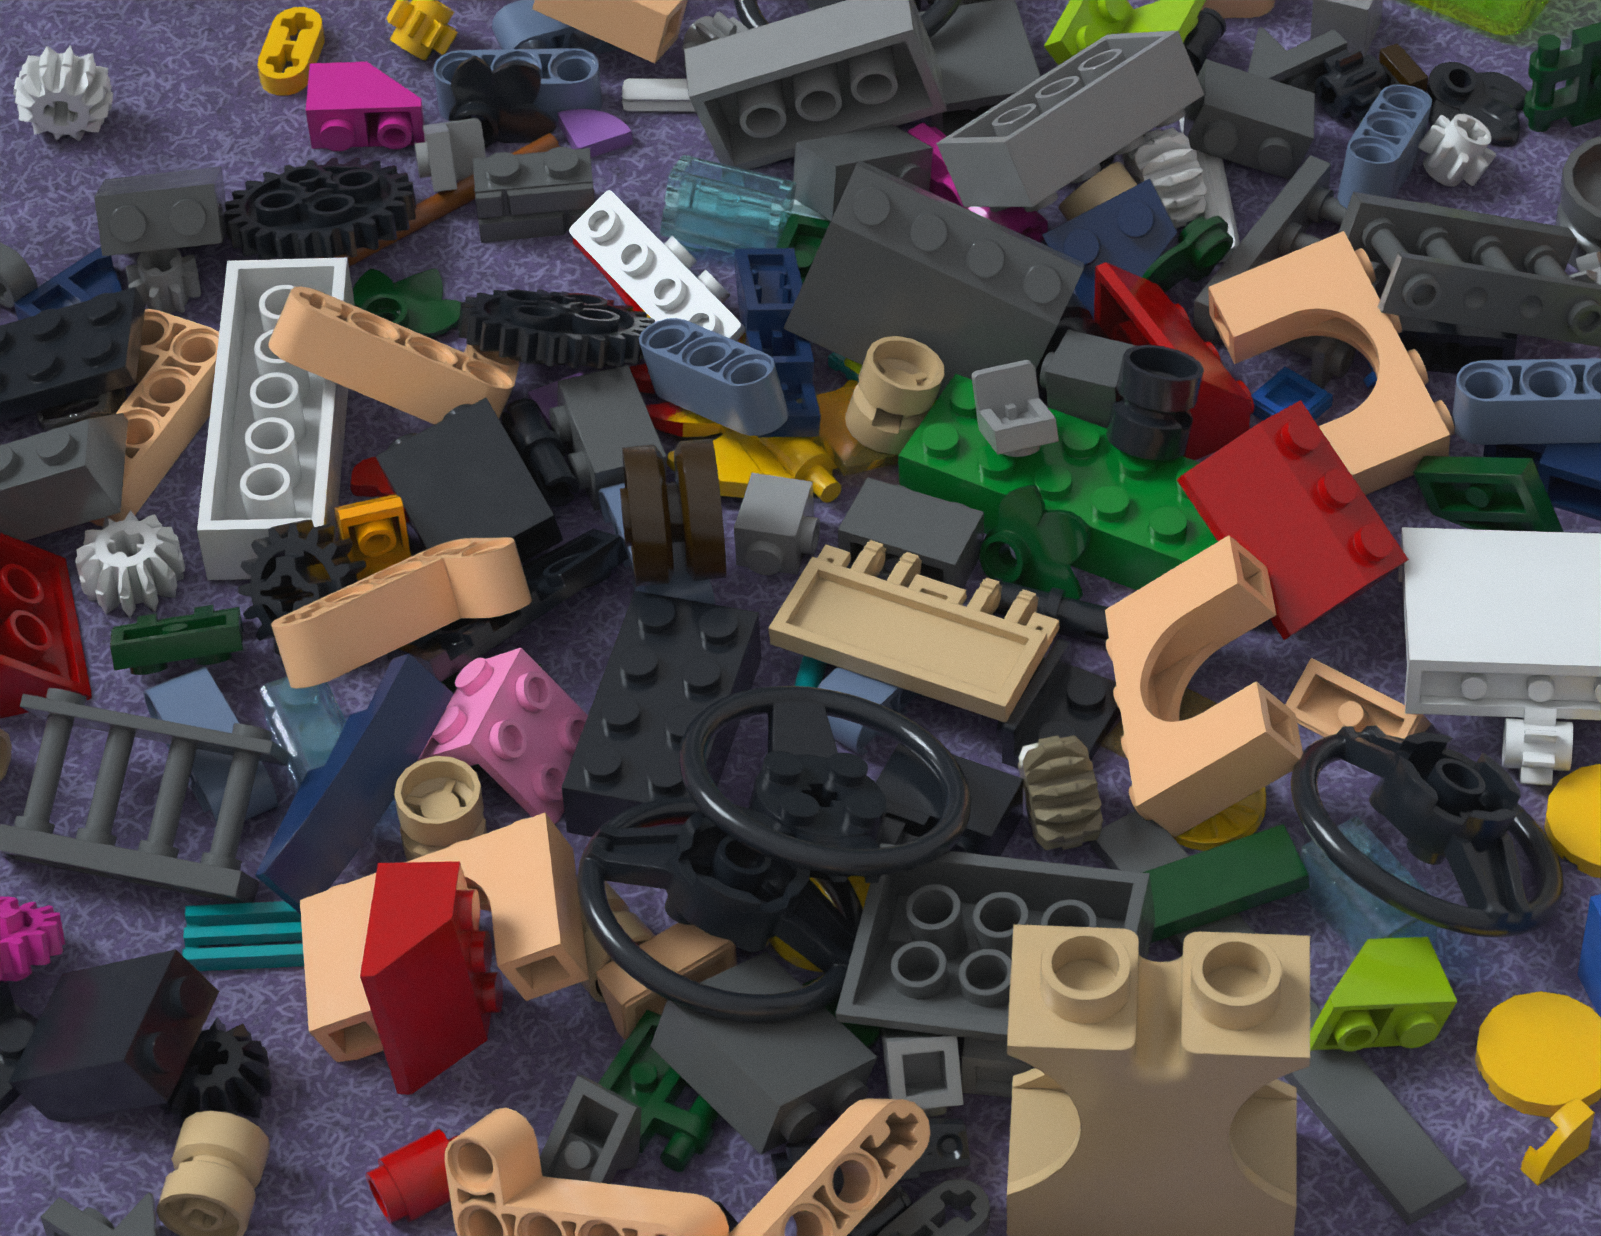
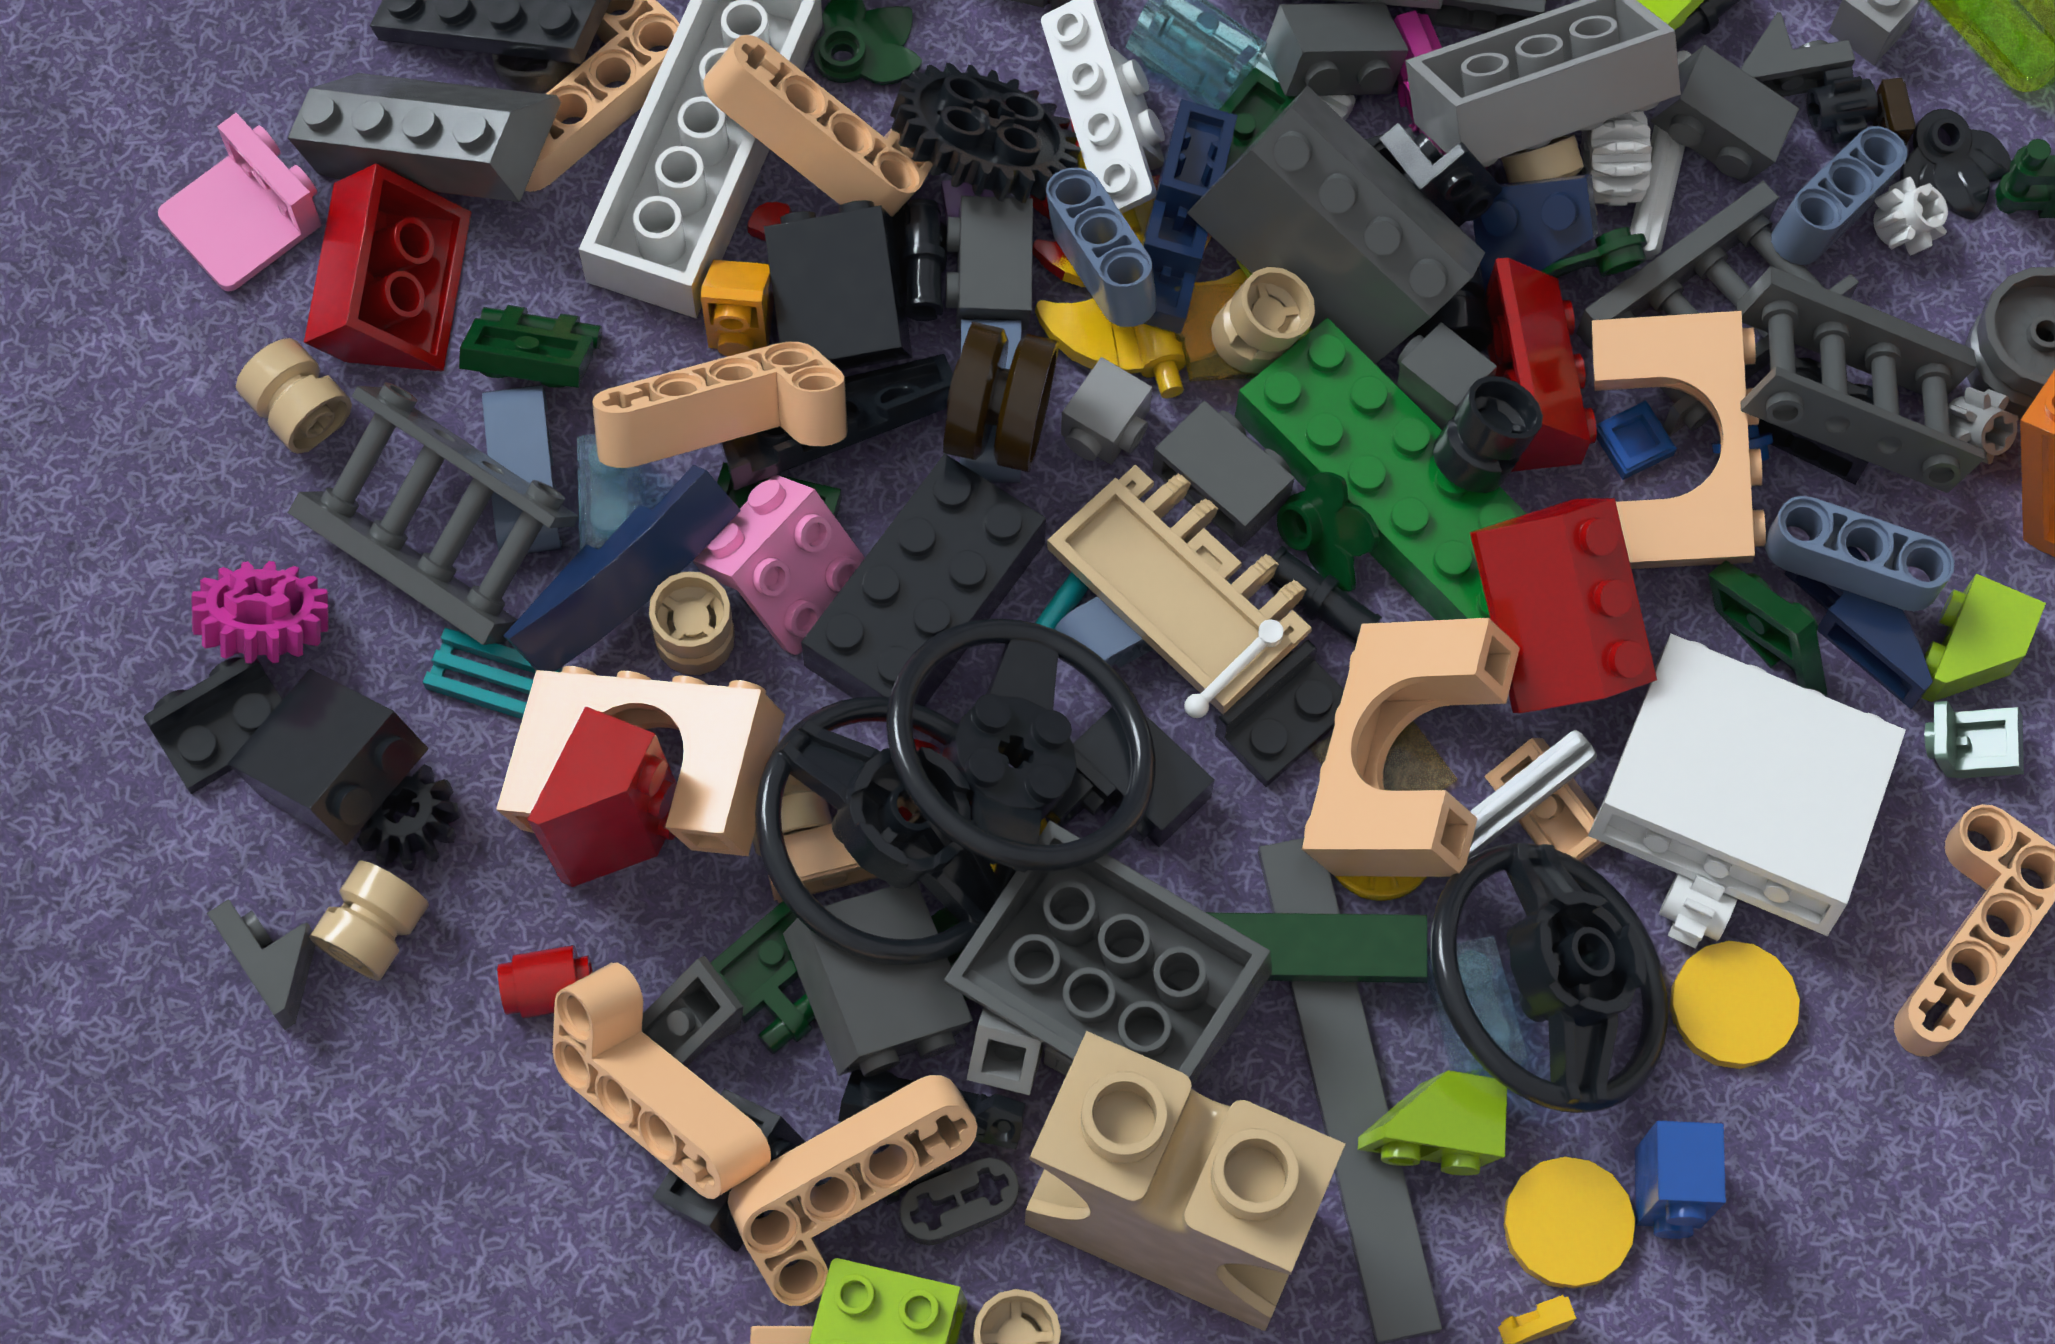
camera: 15 degrees right, 20 degrees up
(130, 563) = (537, 260): white gear -> none
(289, 565) = (654, 338): black gear -> none
(1010, 409) = (1354, 395): light grey bracket -> none
(1021, 633) = (1269, 635): none -> white hinge
(1023, 206) = (1451, 181): none -> black bracket
(1060, 792) = (1243, 803): dark tan gear -> none
(1332, 691) = (1530, 788): none -> light grey axle

